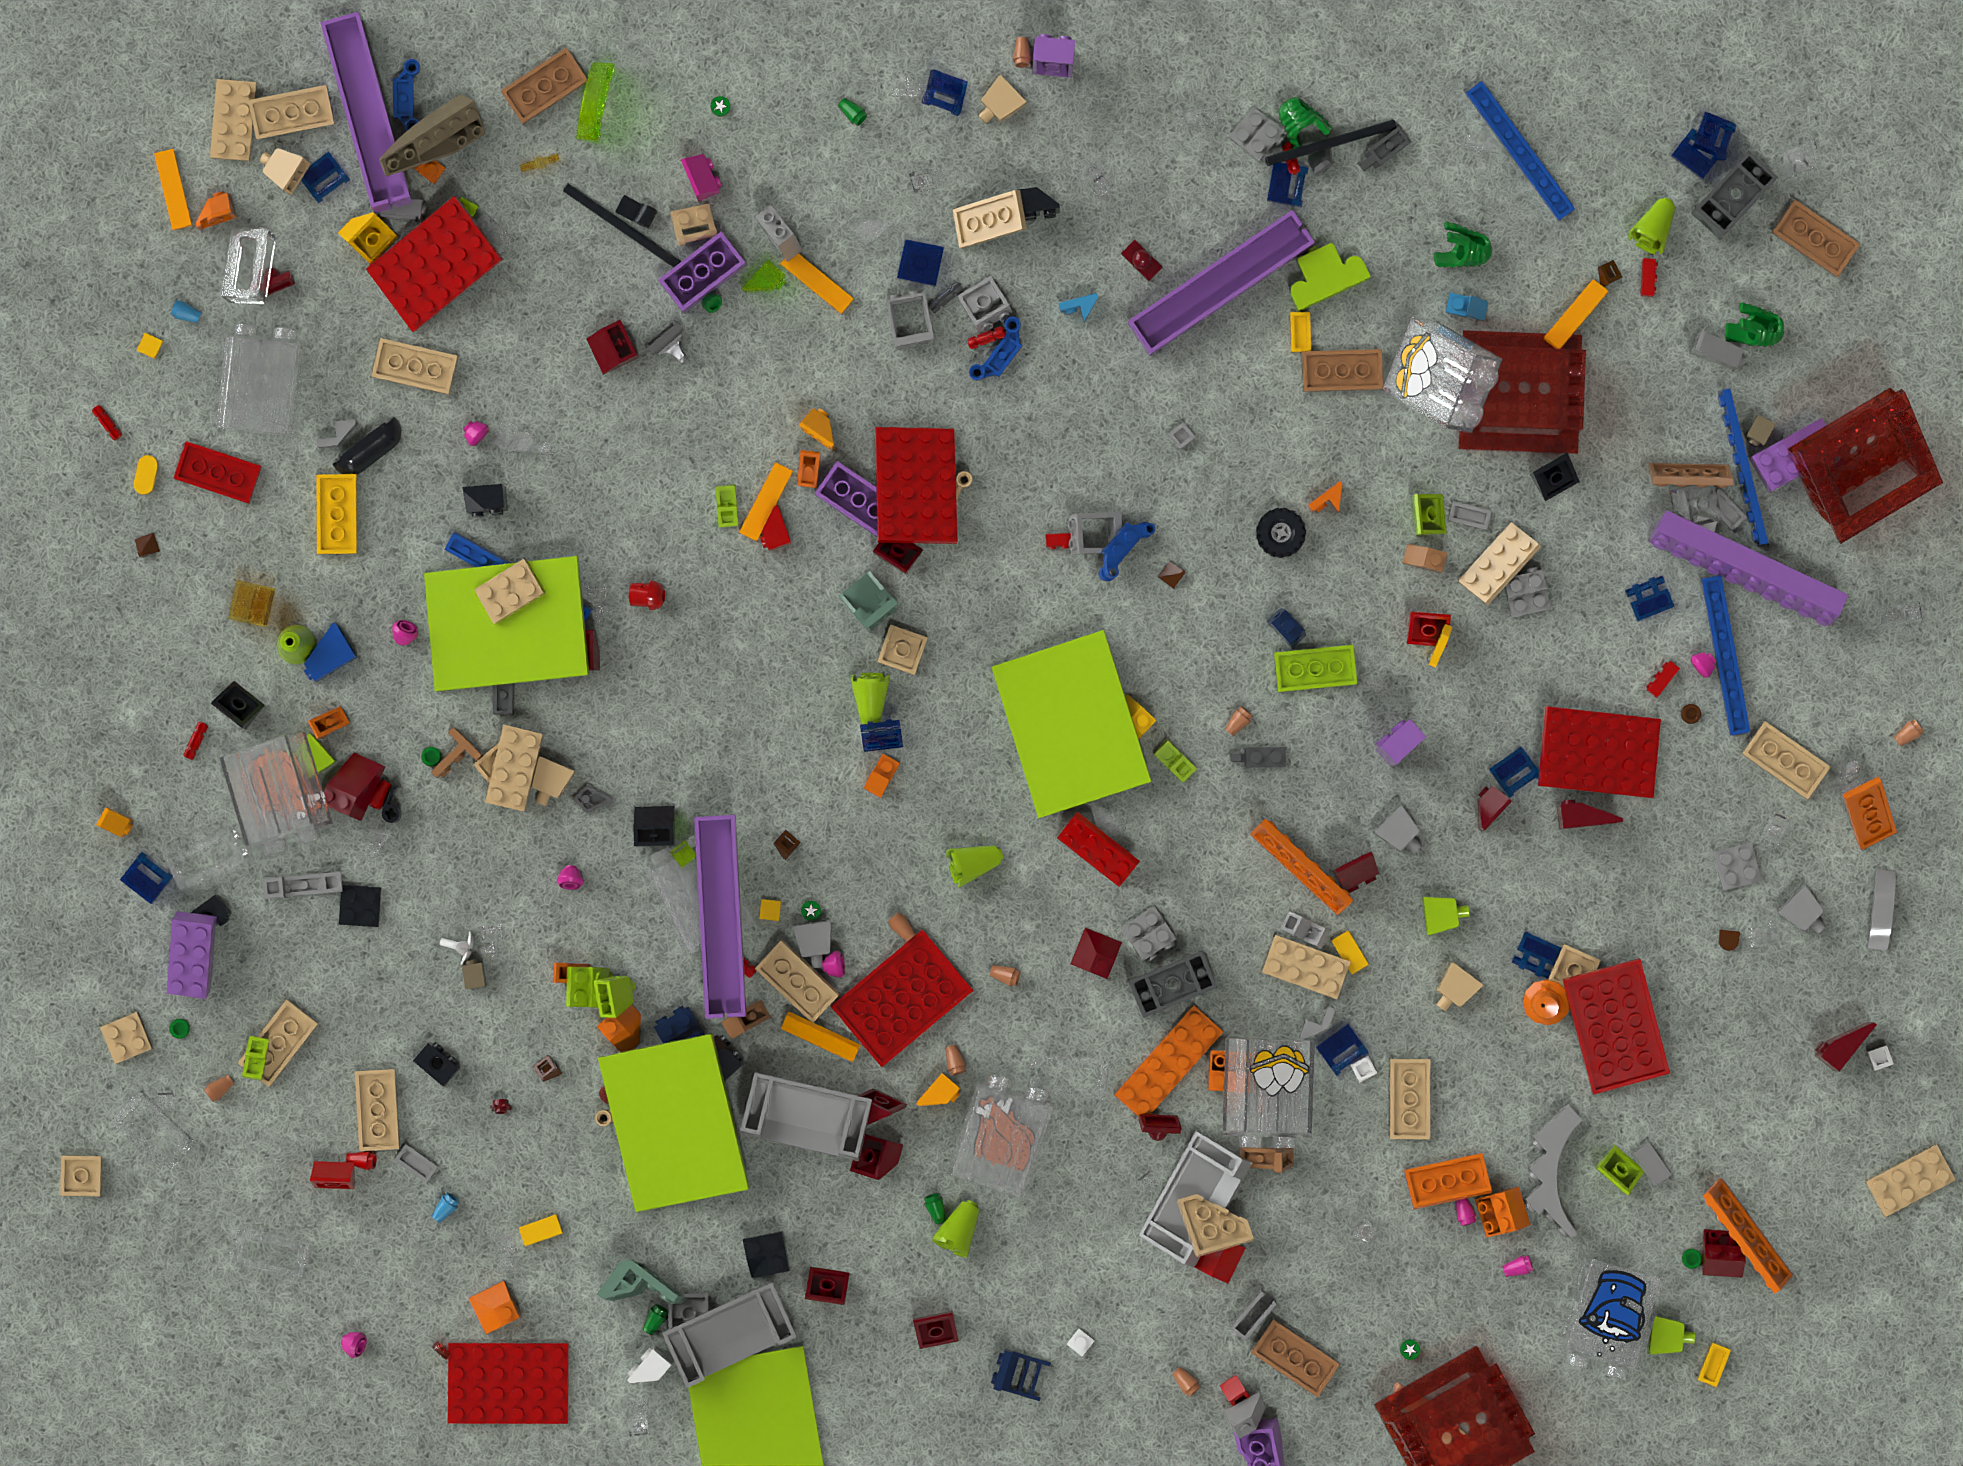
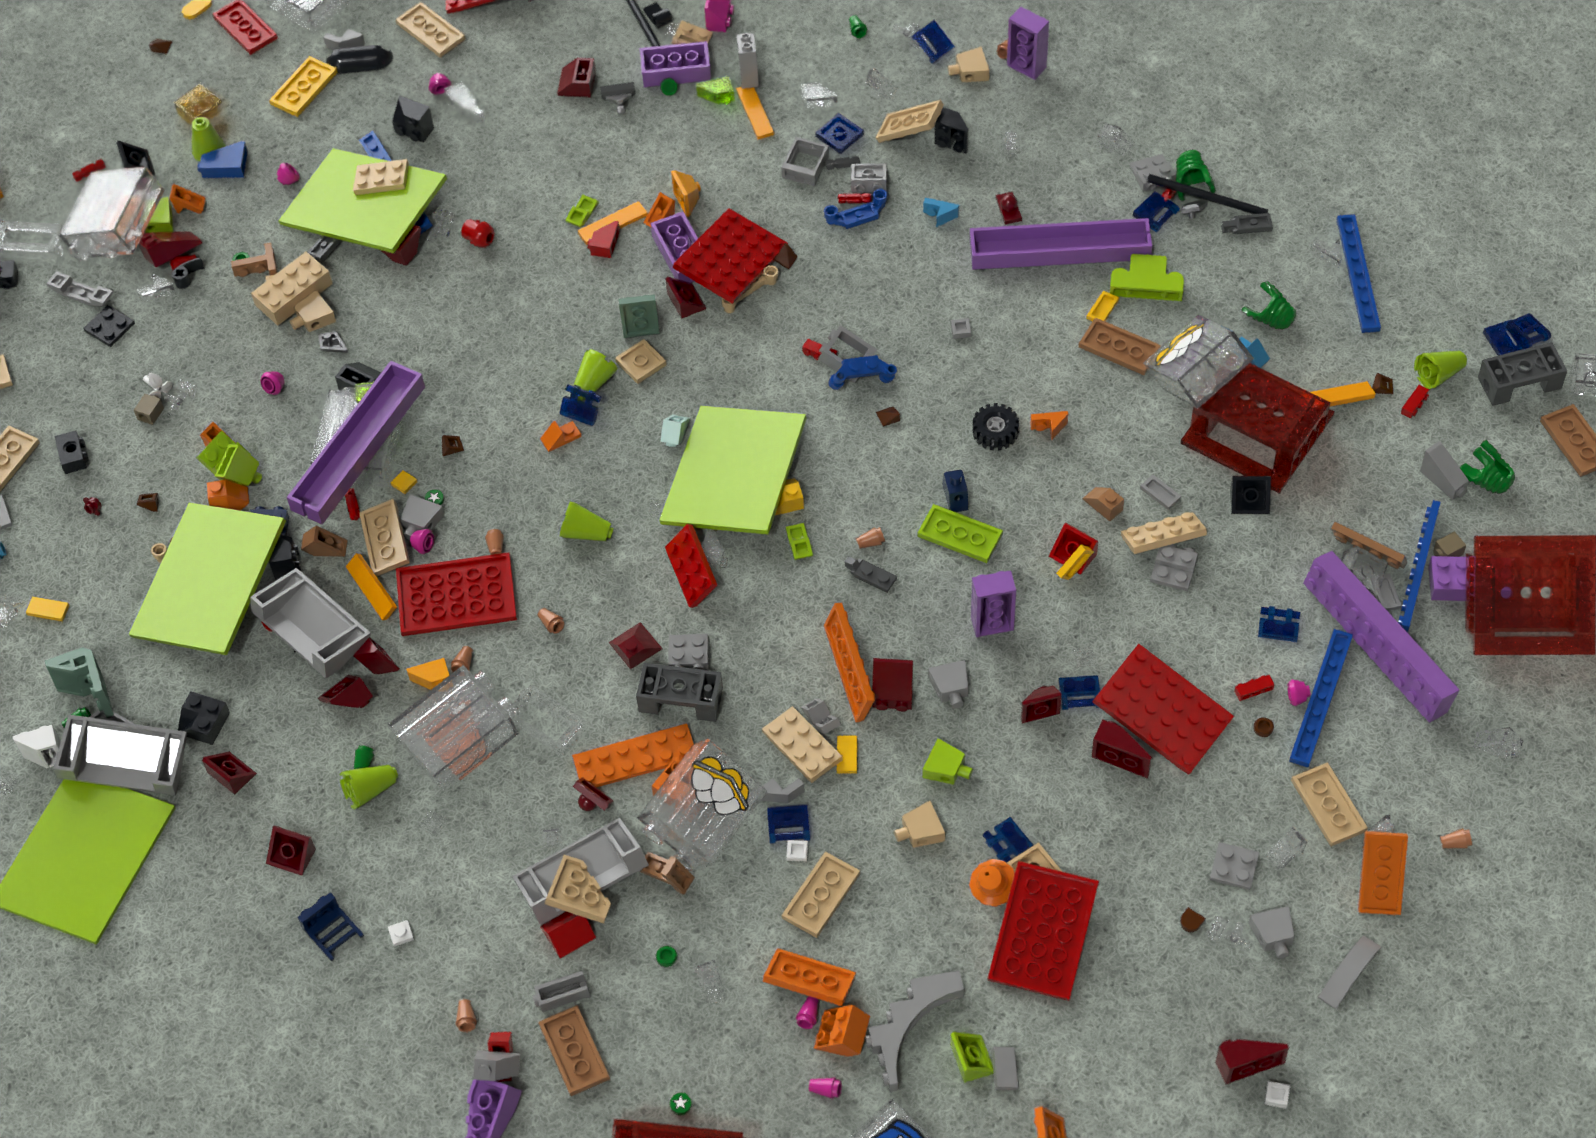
camera: 25 degrees right, 30 degrees down
(963, 447) = (786, 256): none -> reddish brown slope
(985, 707) = (674, 430): none -> light aqua slope
(1315, 1230) = (666, 956): none -> green tile
(1429, 514) = (1126, 472): lime slope -> none

